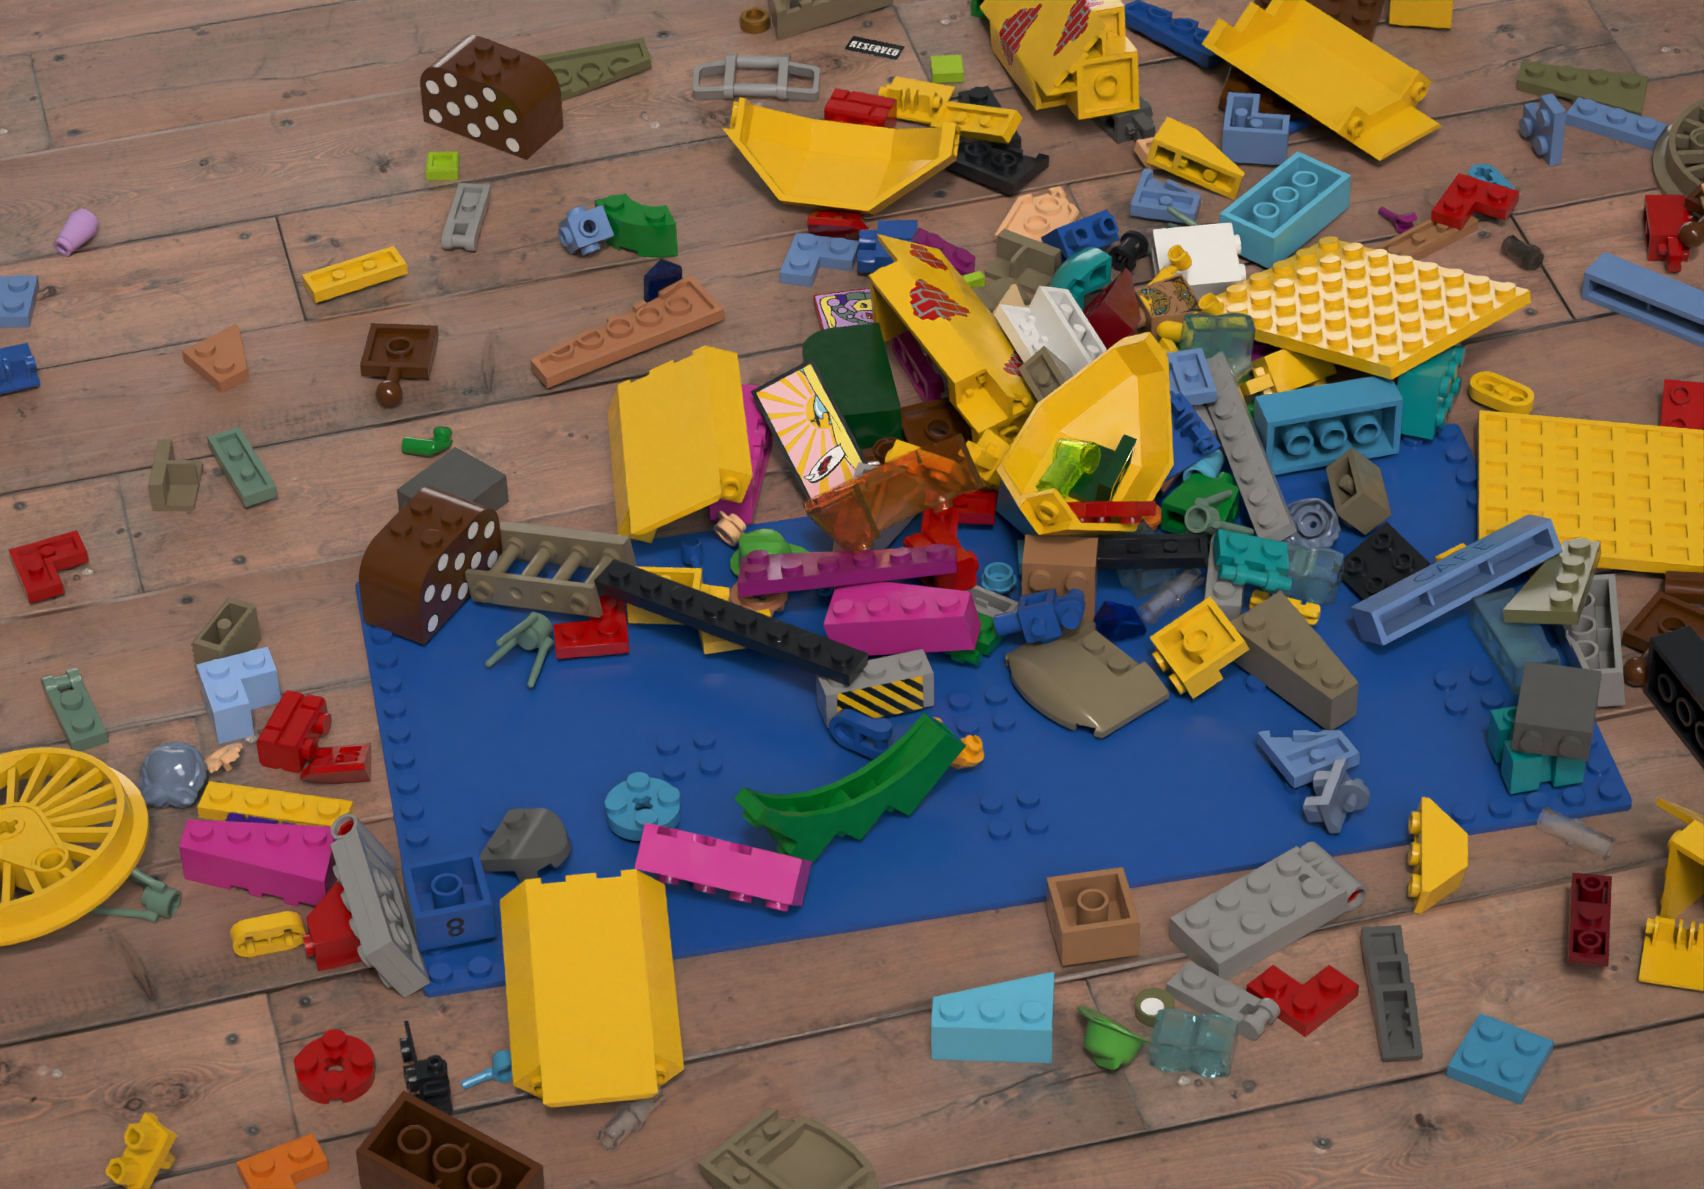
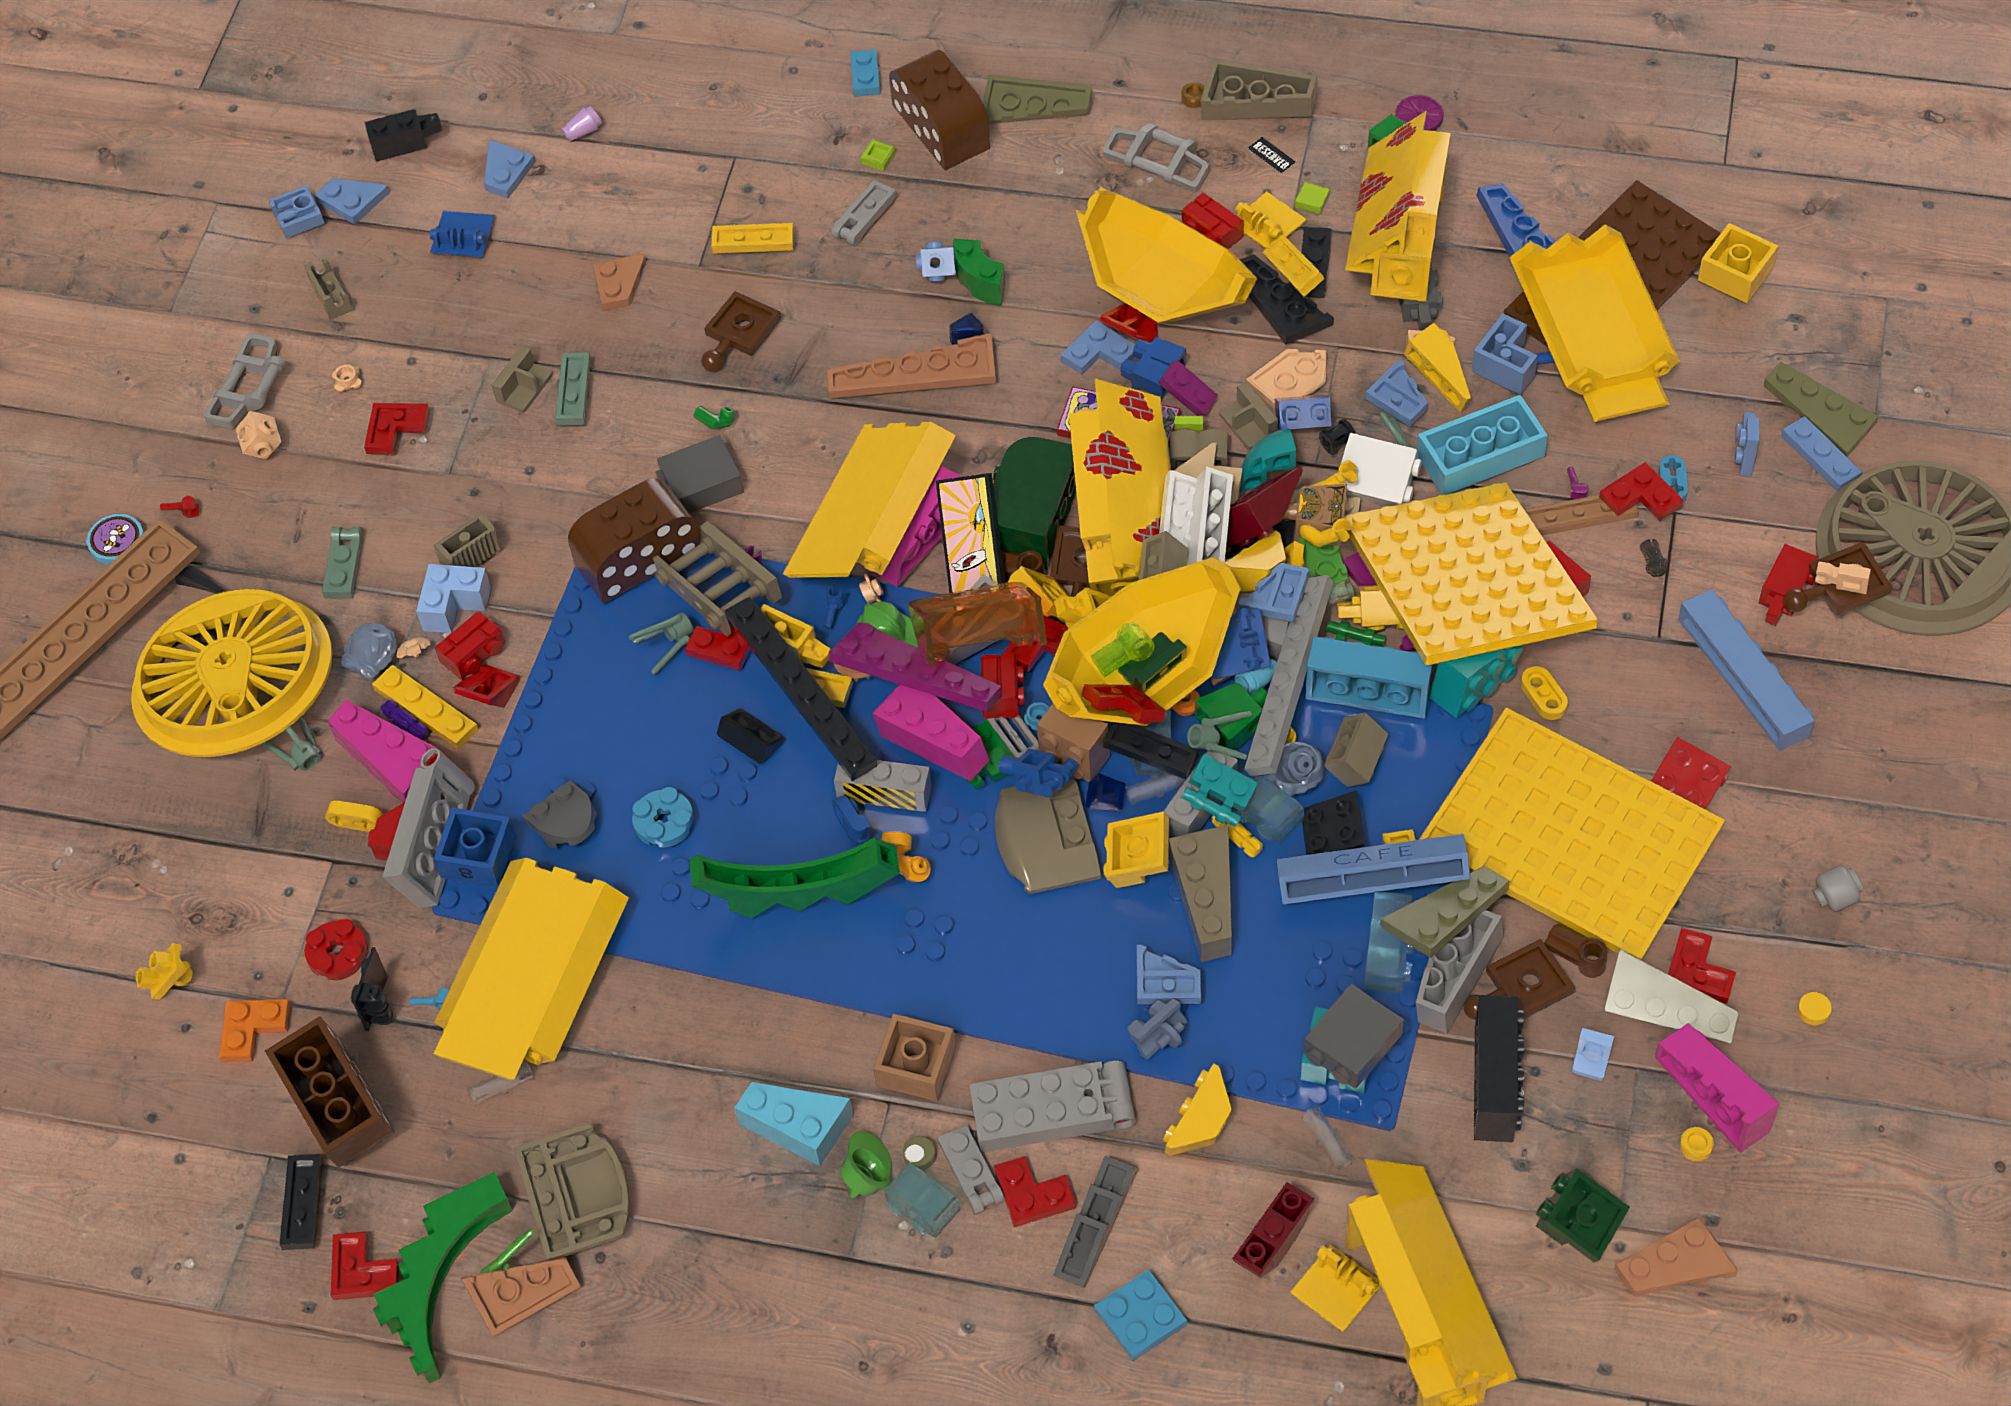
camera: 30 degrees right, 15 degrees up
(374, 100) = (865, 73): none -> dark azure plate
(685, 704) = (749, 735): none -> black slope
(723, 865) = (667, 894): dark pink wedge -> none
(1219, 333) = (1335, 558): clear light blue brick -> none

